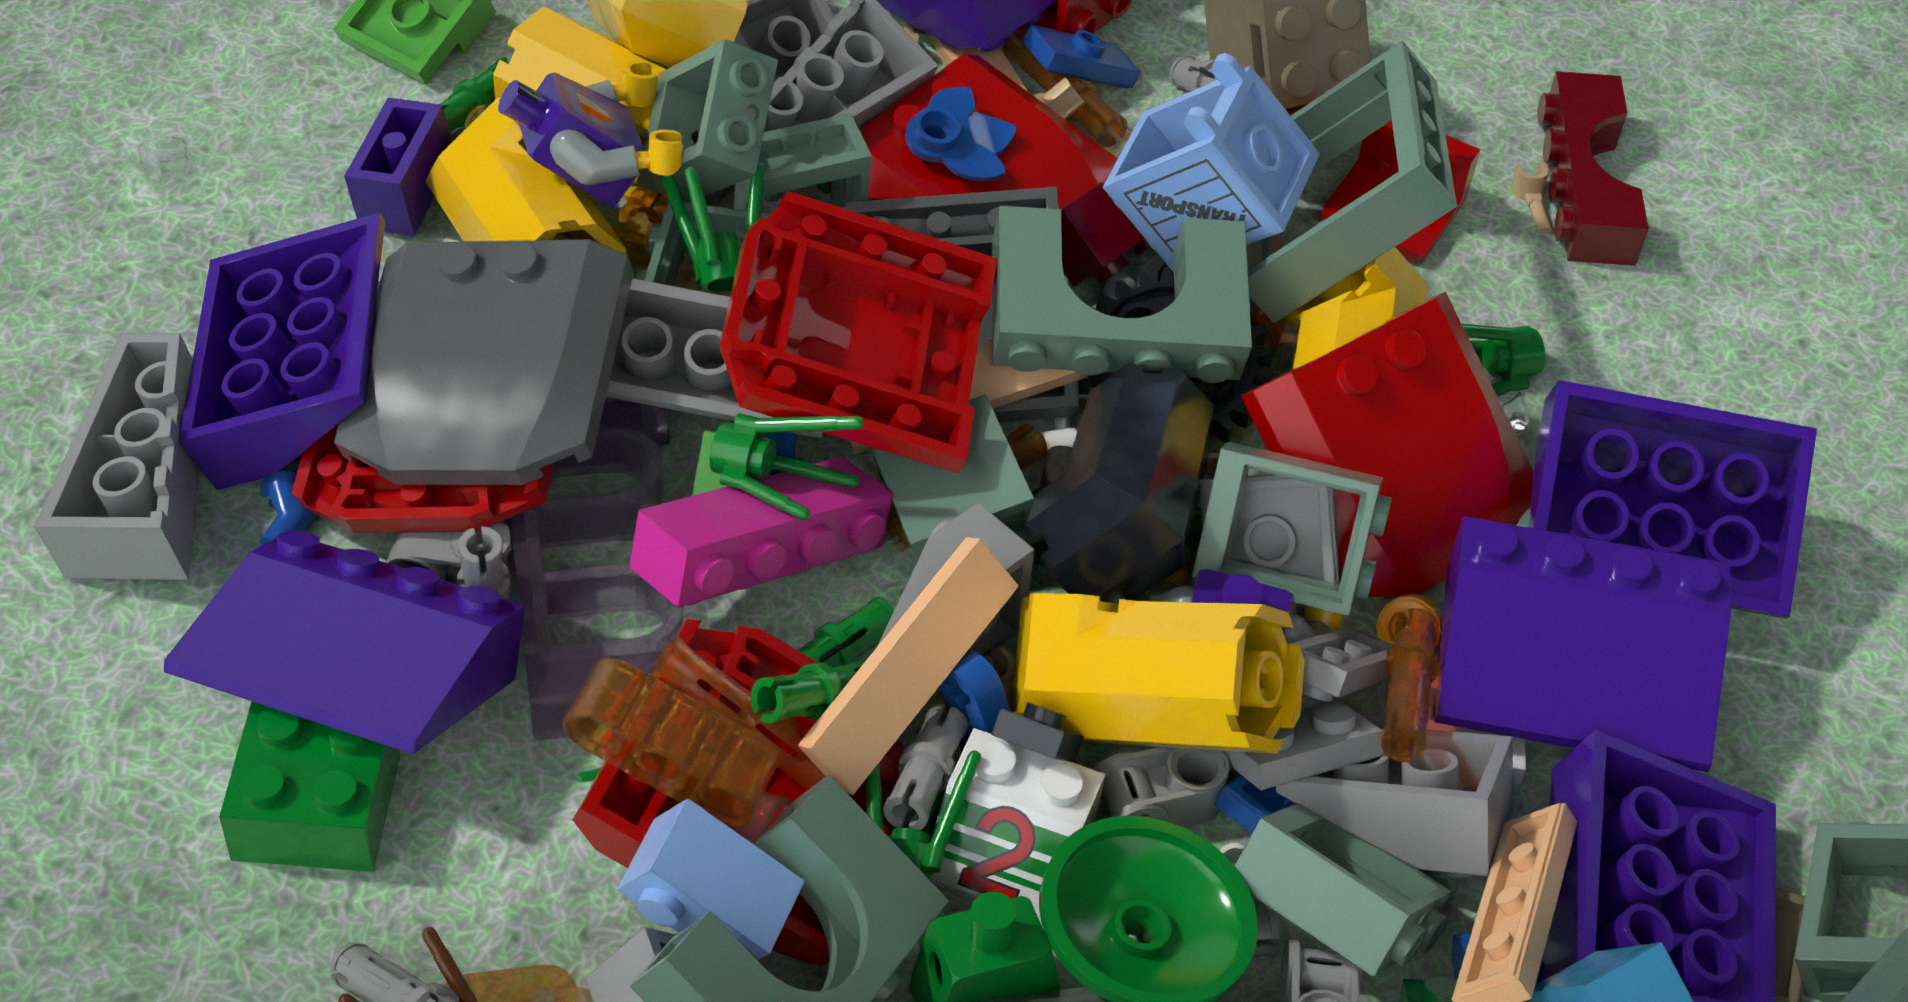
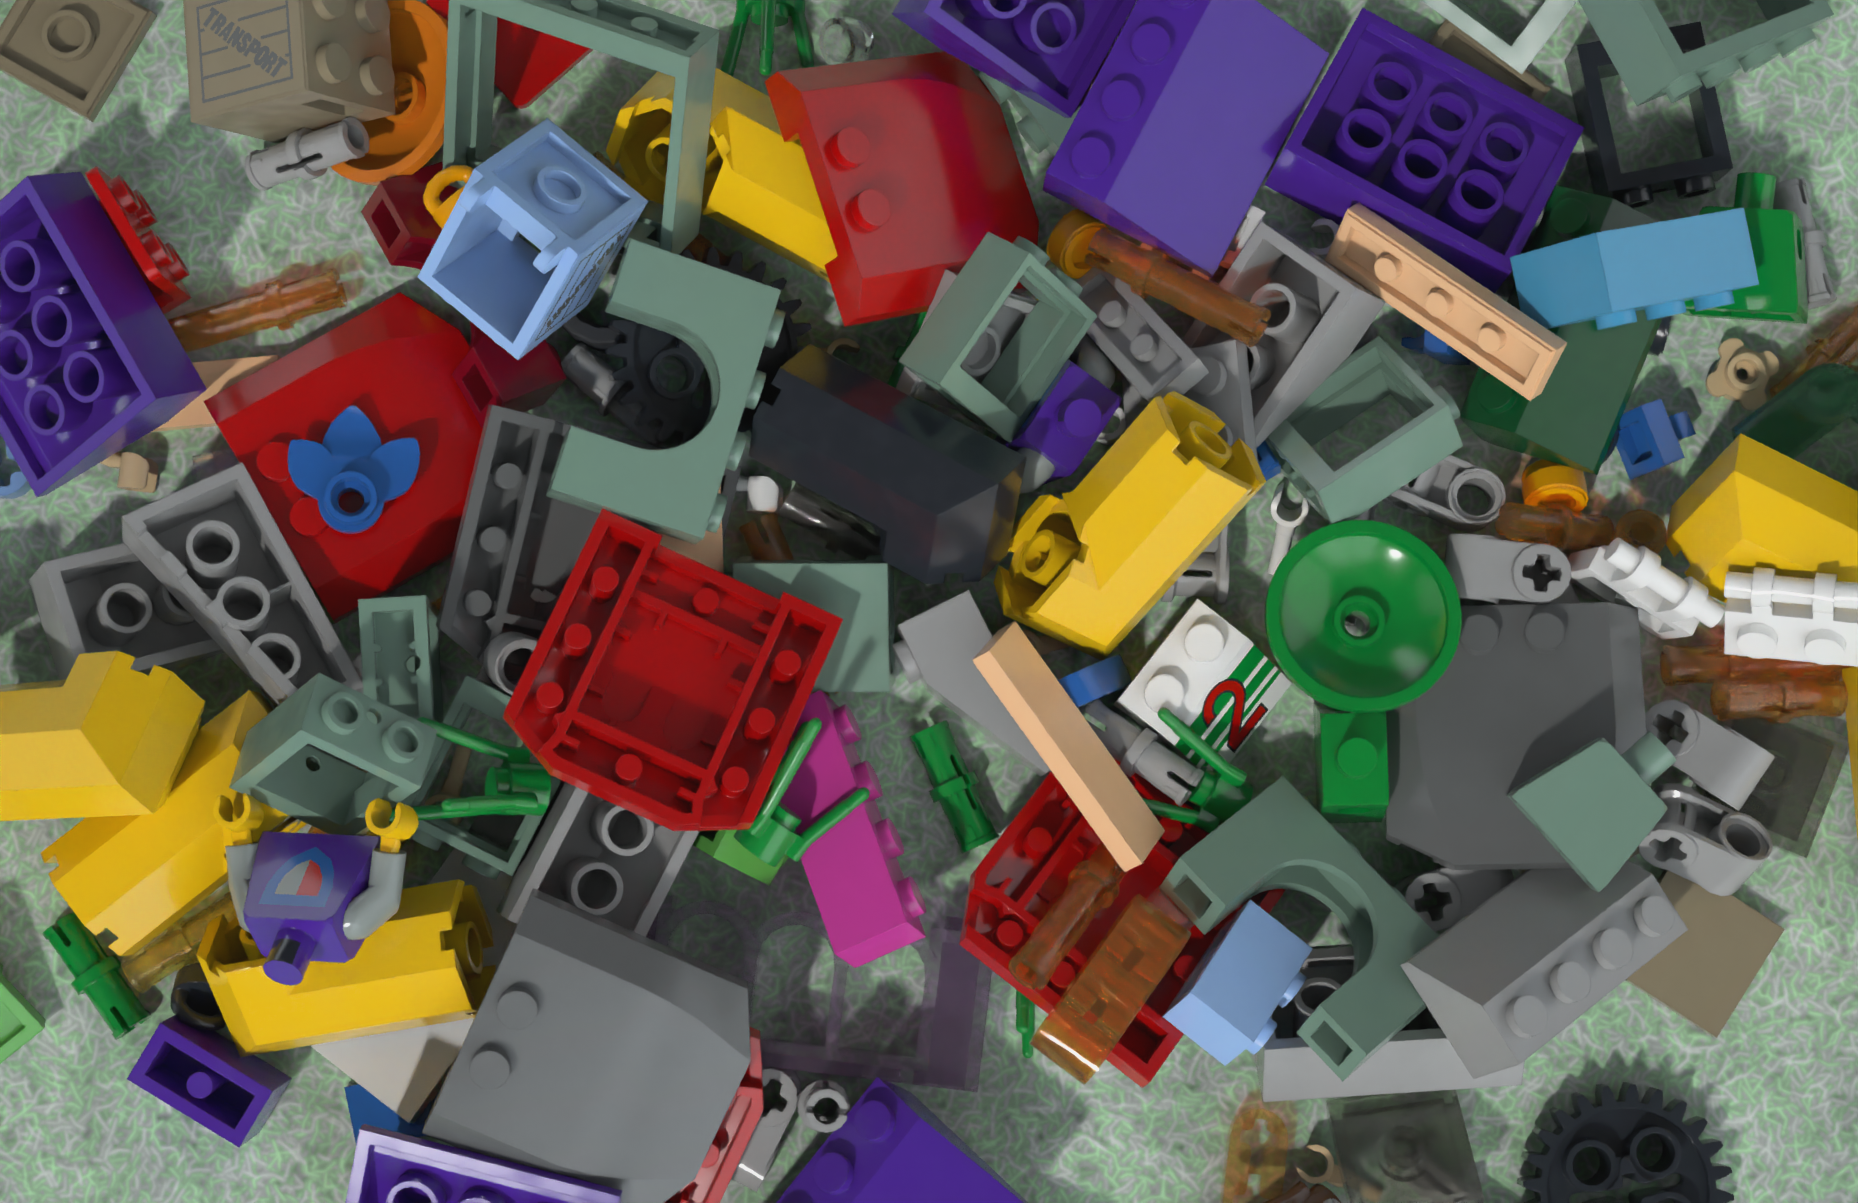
camera: 70 degrees left, 35 degrees up
(801, 694) = (1070, 840): green pin -> none
(1038, 731) = (1152, 648): black plate -> none
(1061, 99) = (290, 329): tan hand -> none
(1081, 56) = (222, 283): blue plate -> none

